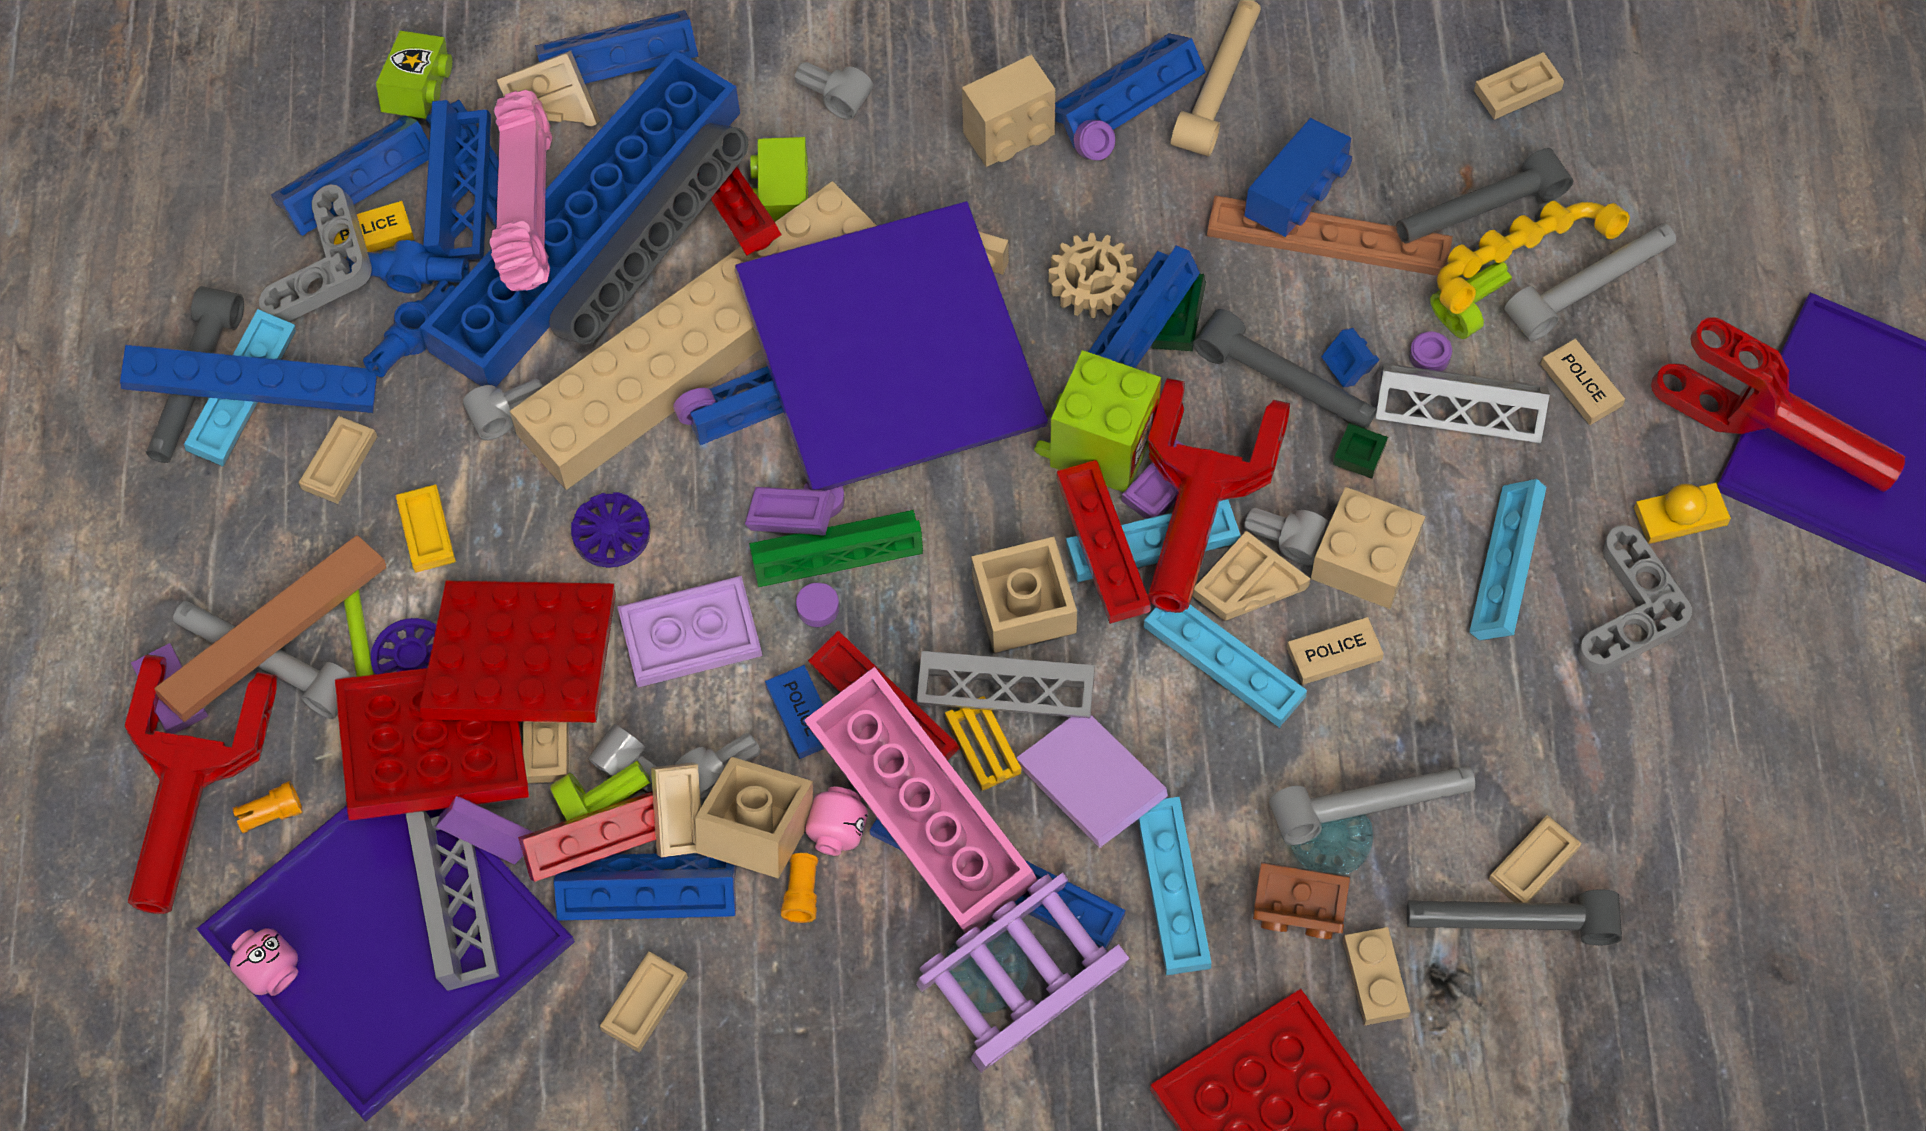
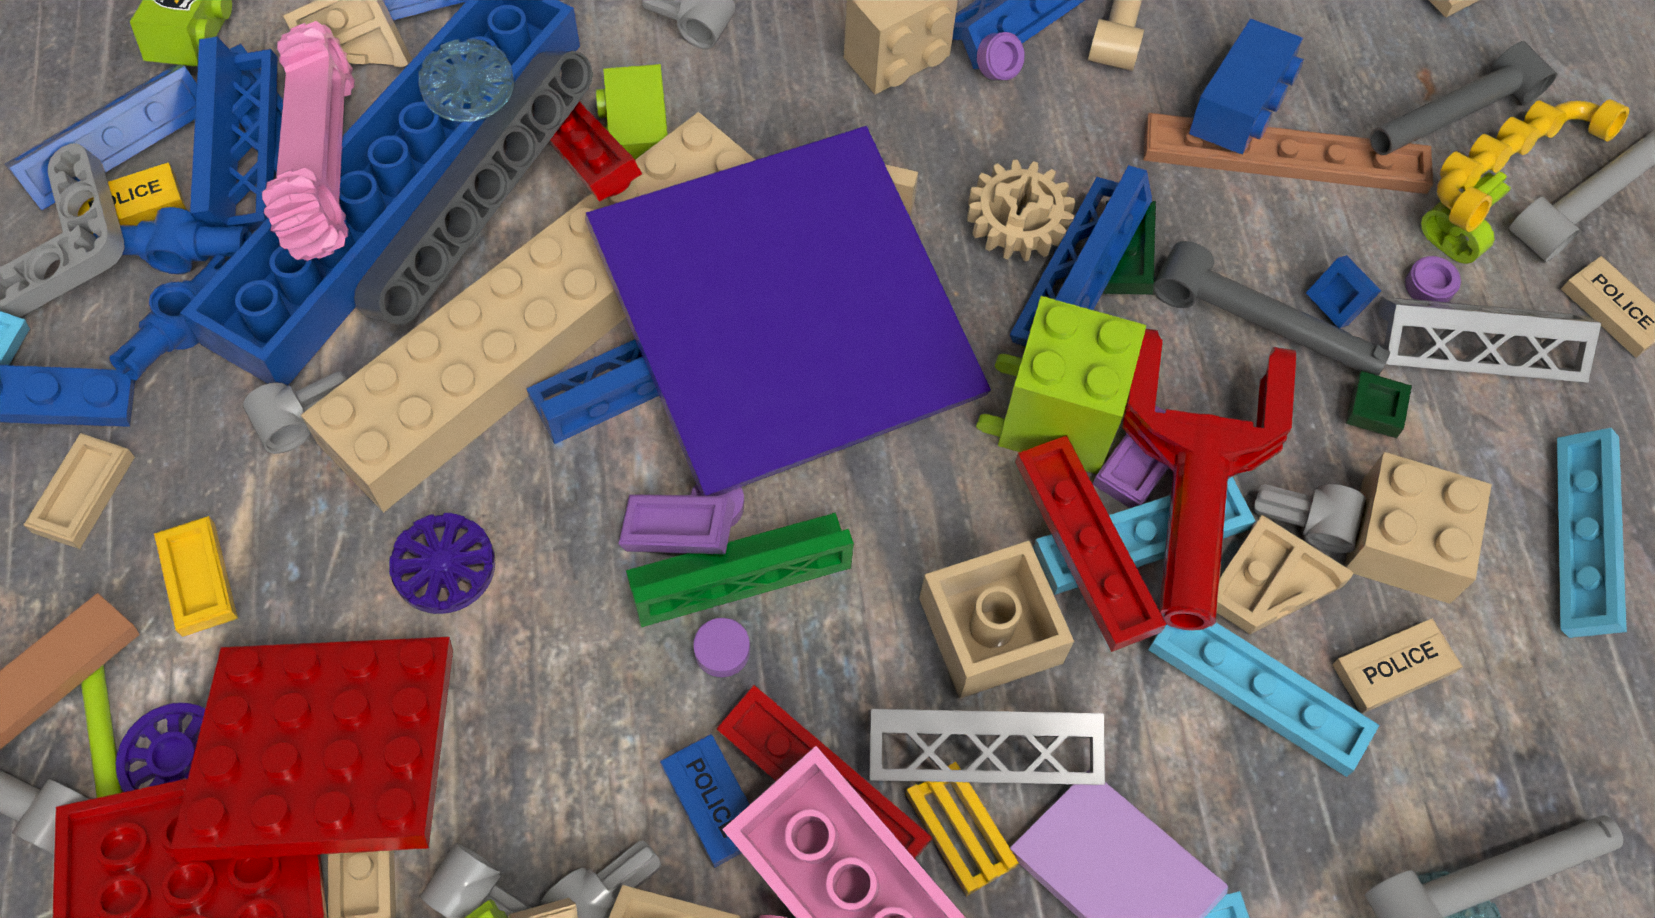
camera: 10 degrees left, 0 degrees up
(646, 147) = (466, 80): none -> clear light blue wheel
(689, 631) = (553, 696): lavender tile -> none
(692, 401) = (539, 390): medium lavender tile -> none

